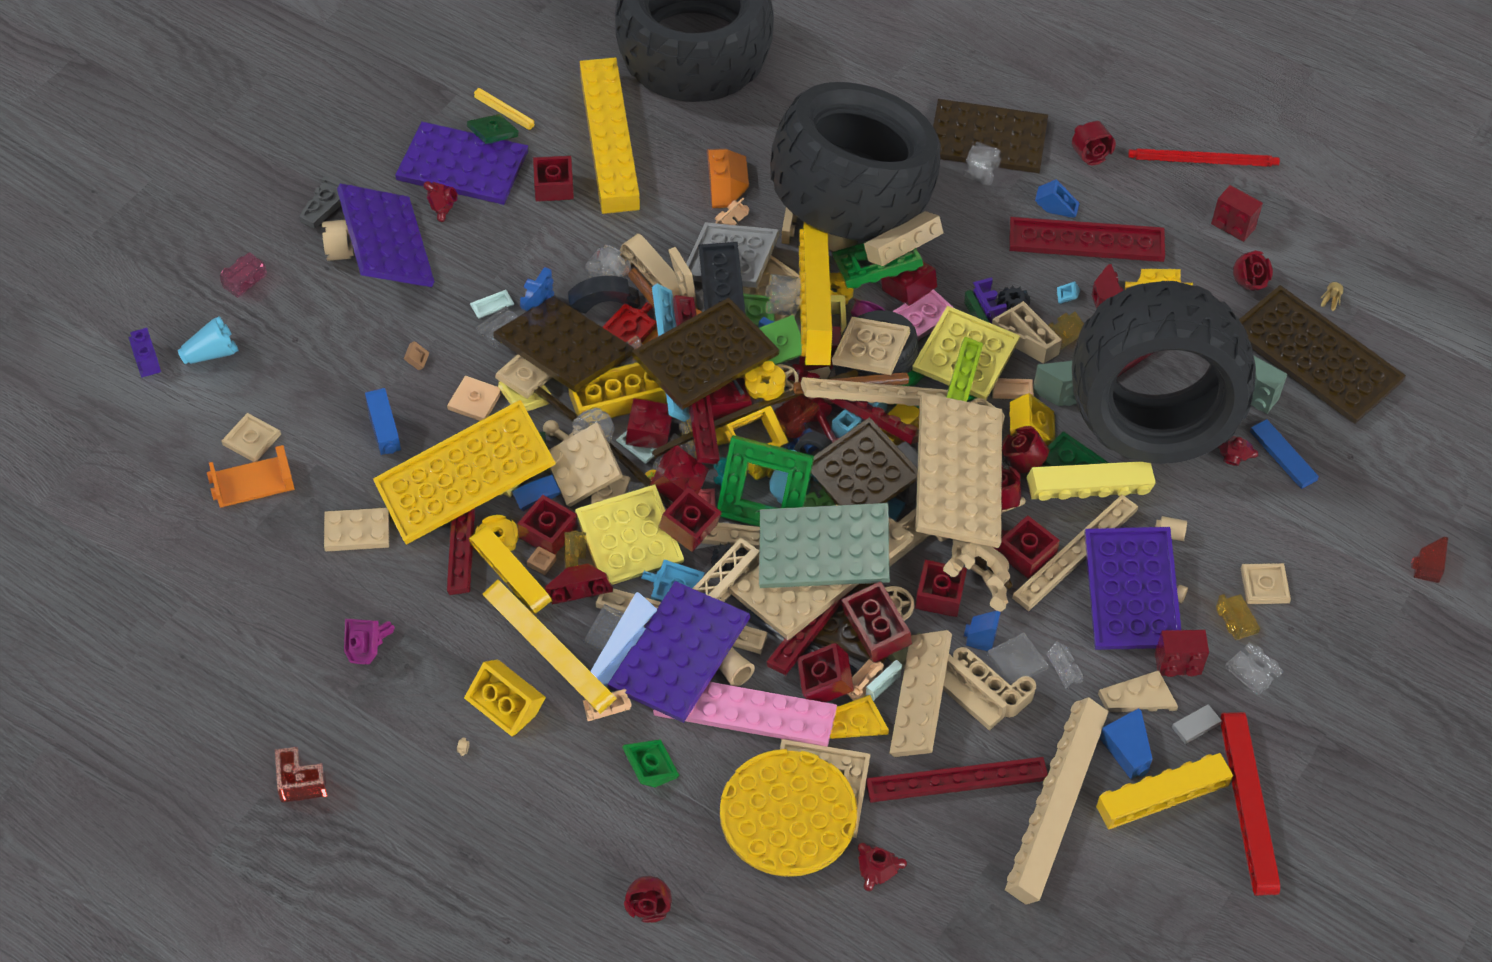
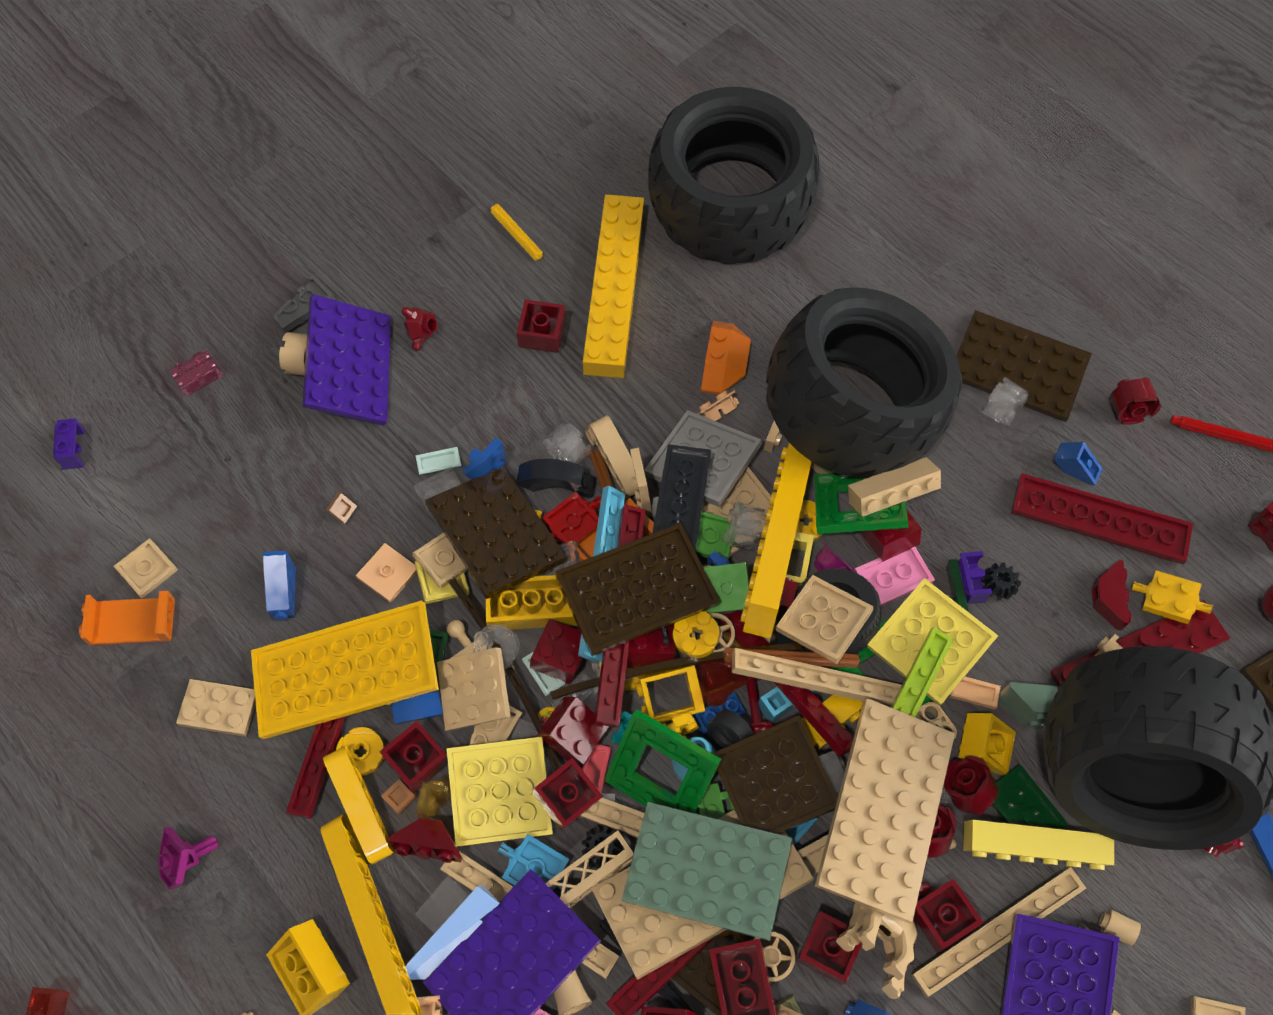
camera: 15 degrees right, 10 degrees up
(208, 343) = (135, 447): medium azure cone -> none
(462, 162) = (457, 286): dark purple plate -> none
(492, 128) = (496, 254): dark green plate -> none
(1035, 335) = (1014, 631): tan wedge -> none
(1067, 328) = (1050, 631): clear yellow bracket -> none
(1068, 292) = (1065, 581): medium azure slope -> none

